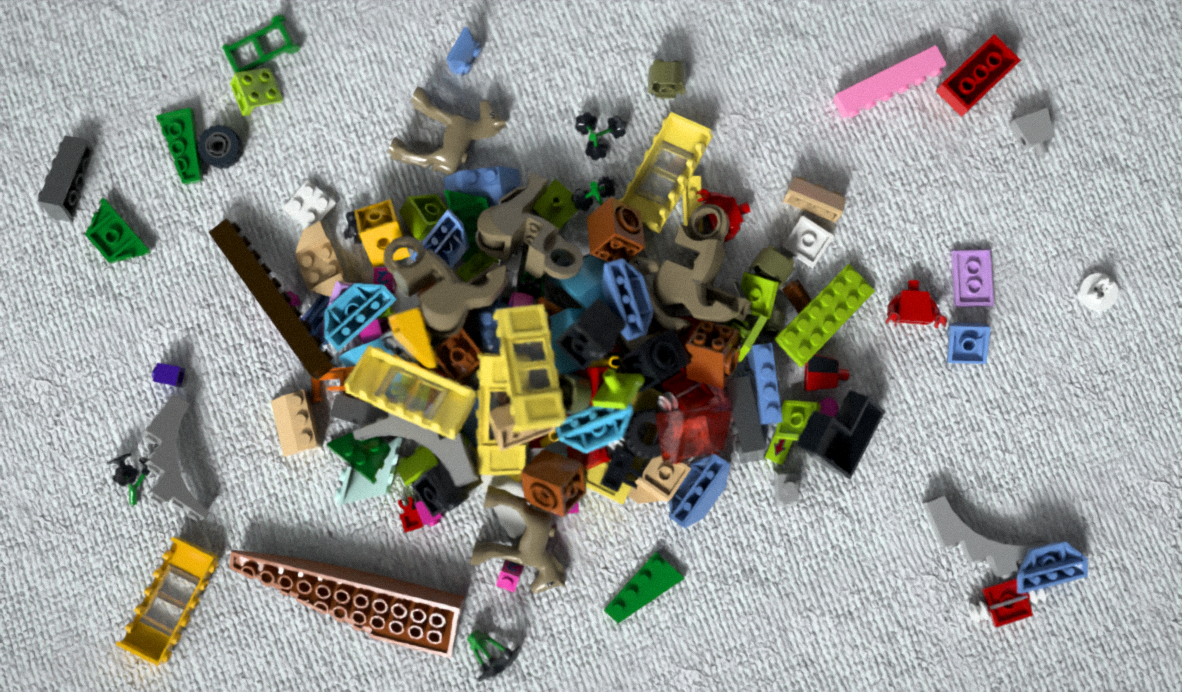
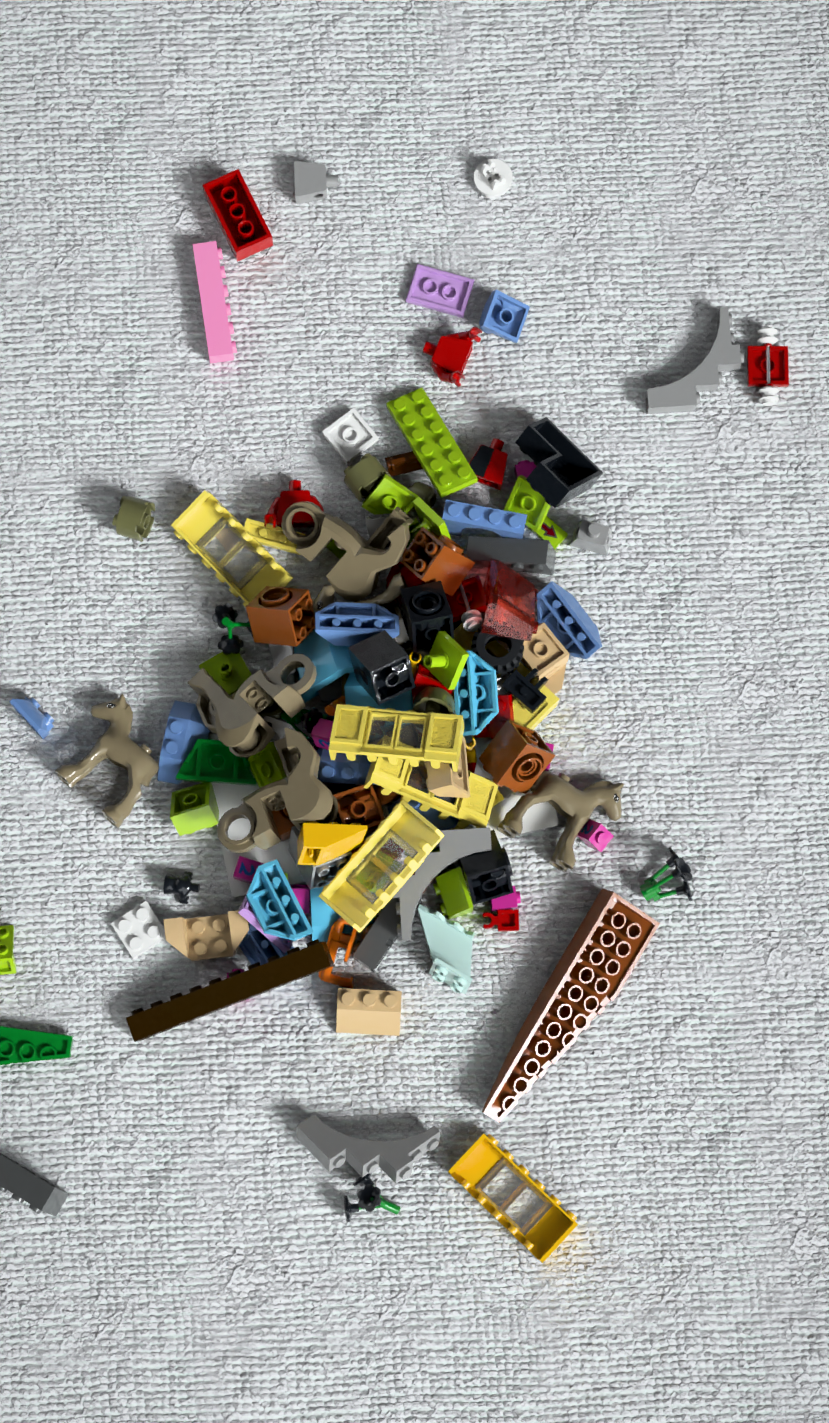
camera: 75 degrees left, 5 degrees down
(114, 236) = (101, 1149): green wing -> none
(168, 374) = (273, 1131): dark purple brick -> none
(212, 139) = (29, 1005): black wheel -> none
(362, 455) = (427, 943): green wing -> none
(377, 228) = (198, 856): yellow brick -> none
(447, 239) = (229, 786): medium blue wedge -> none
(596, 148) = (180, 613): black plant -> none
(646, 585) = (646, 705): green wing -> none
(815, 199) = (310, 413): tan slope -> none
(1051, 566) = (746, 313): medium blue wedge -> none

